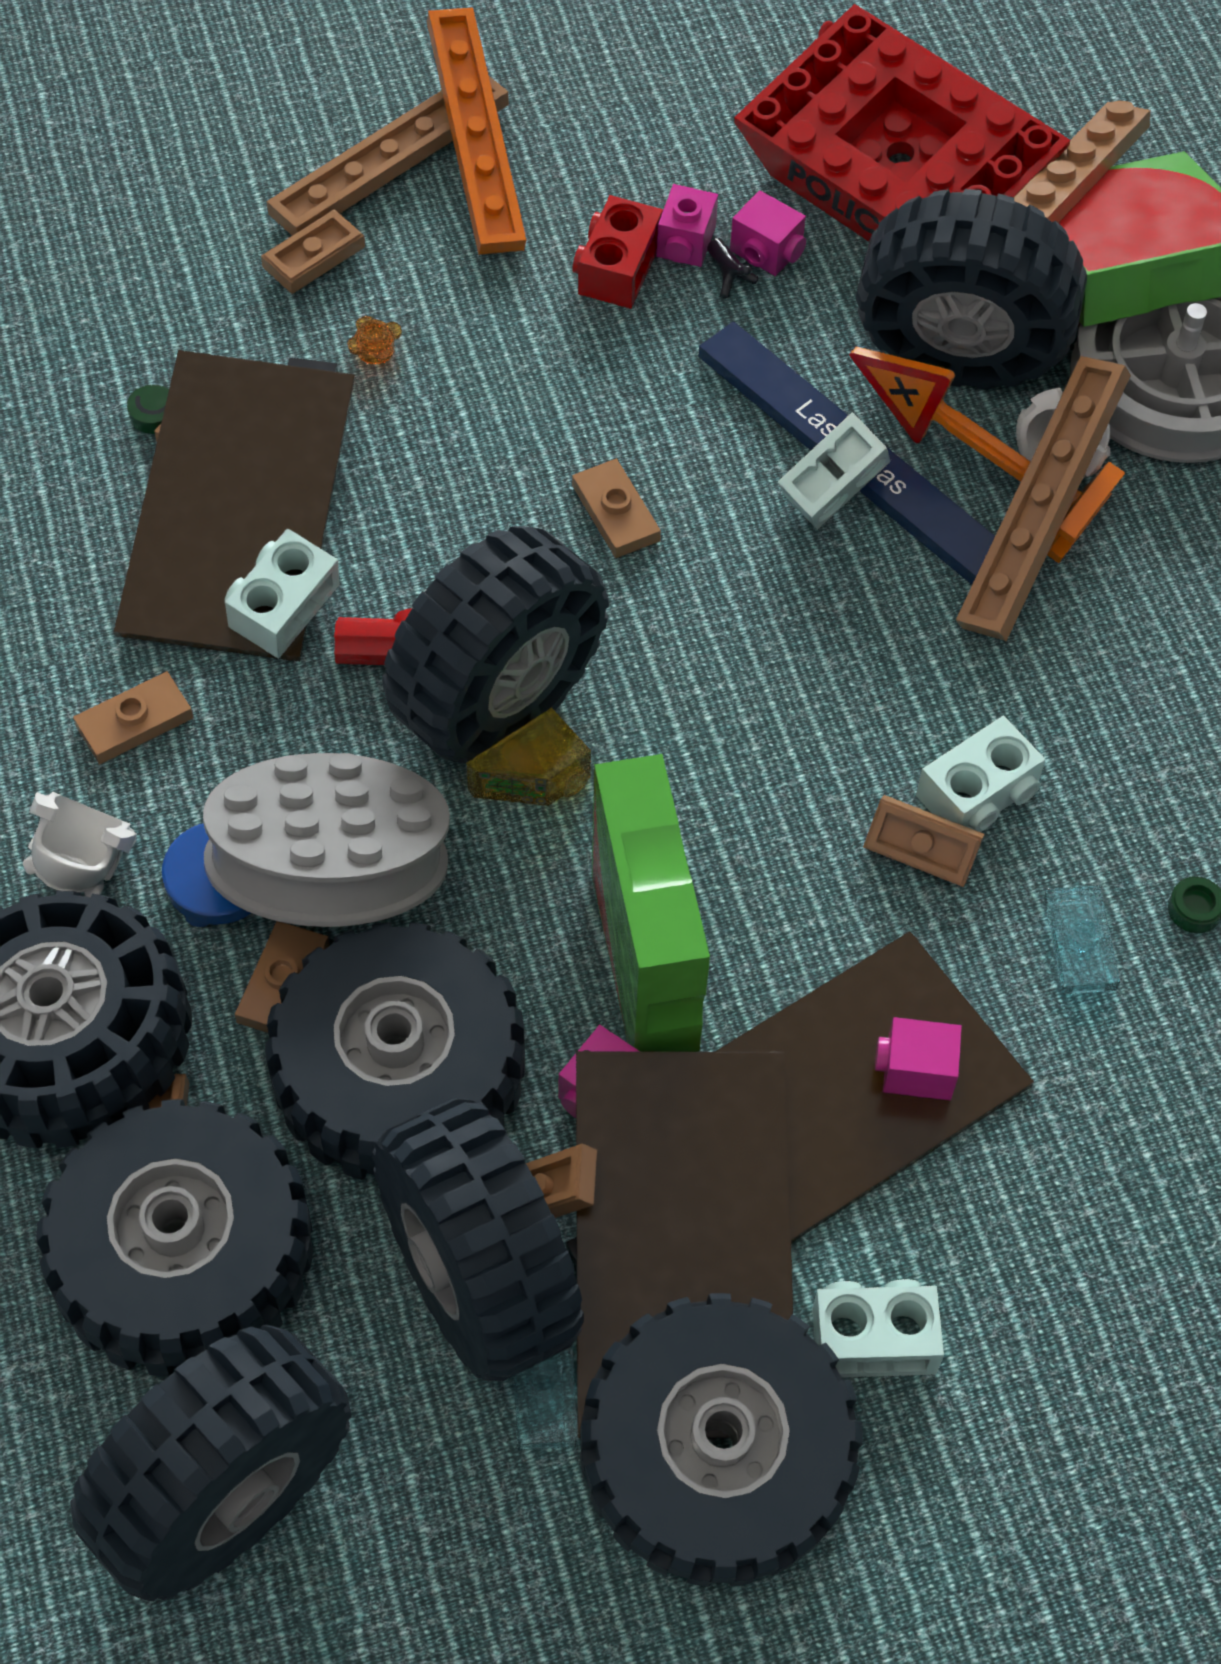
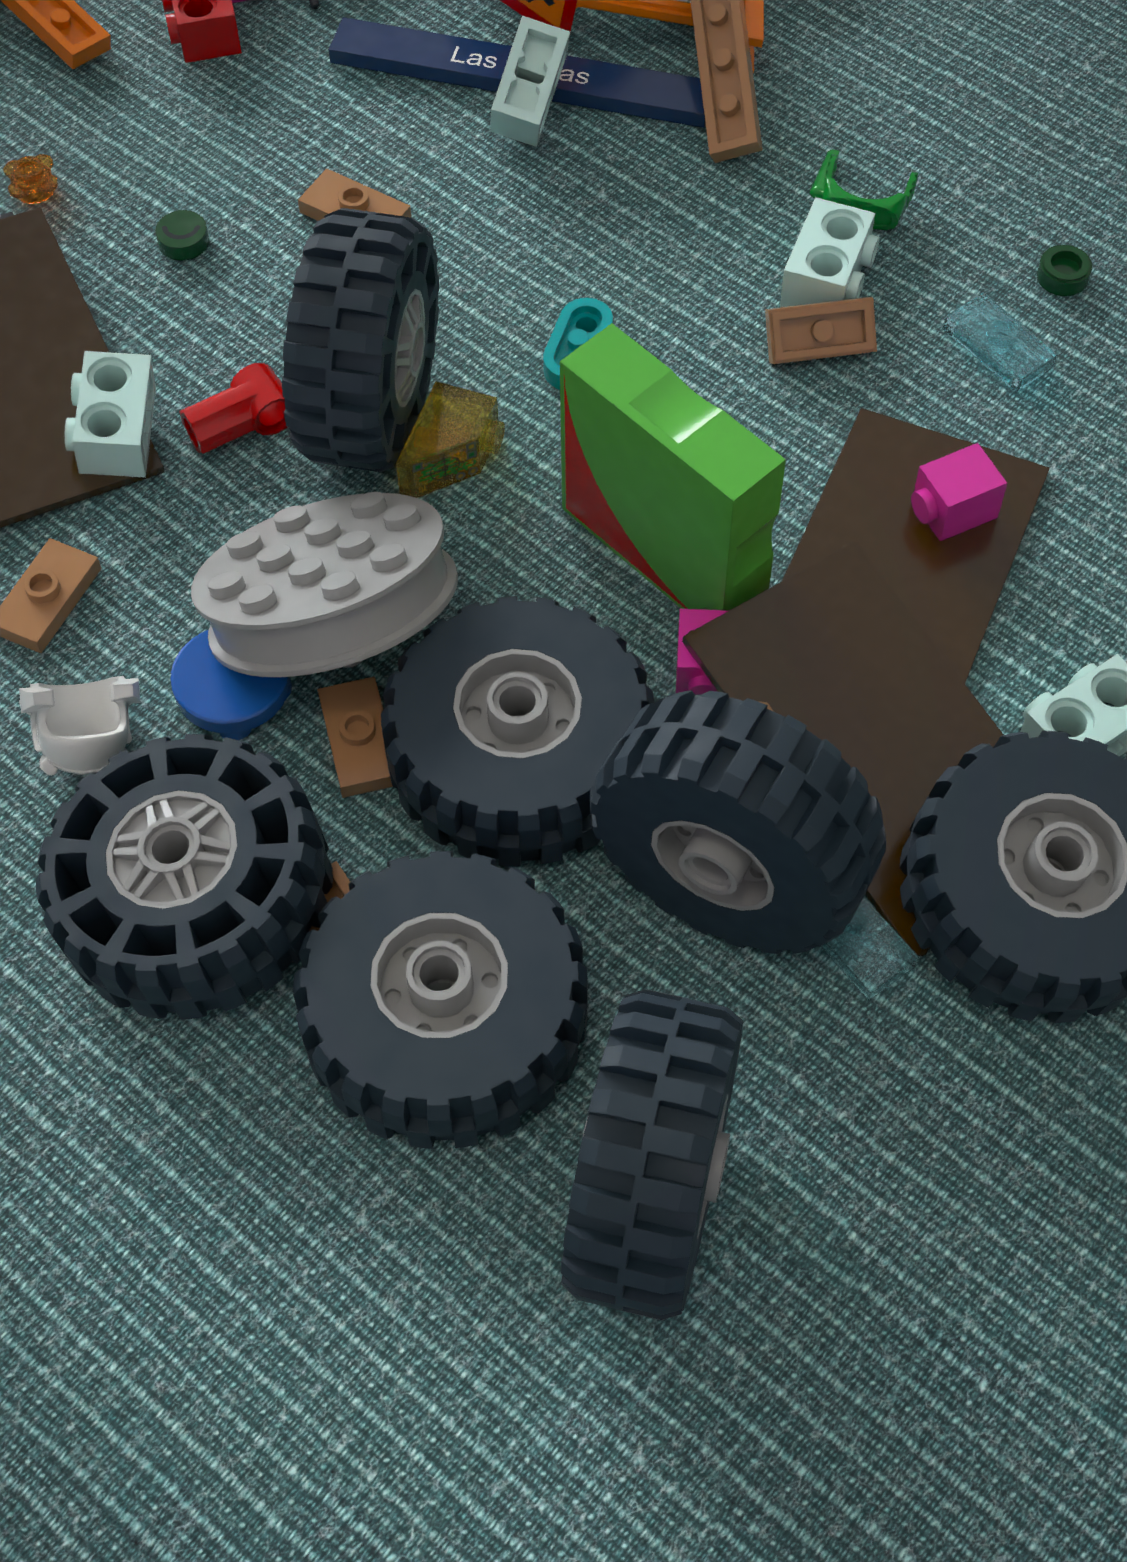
camera: 30 degrees left, 0 degrees up
(458, 456) = (182, 235): none -> dark green tile
(704, 739) = (571, 333): none -> teal plate
(1066, 760) = (887, 210): none -> green helmet

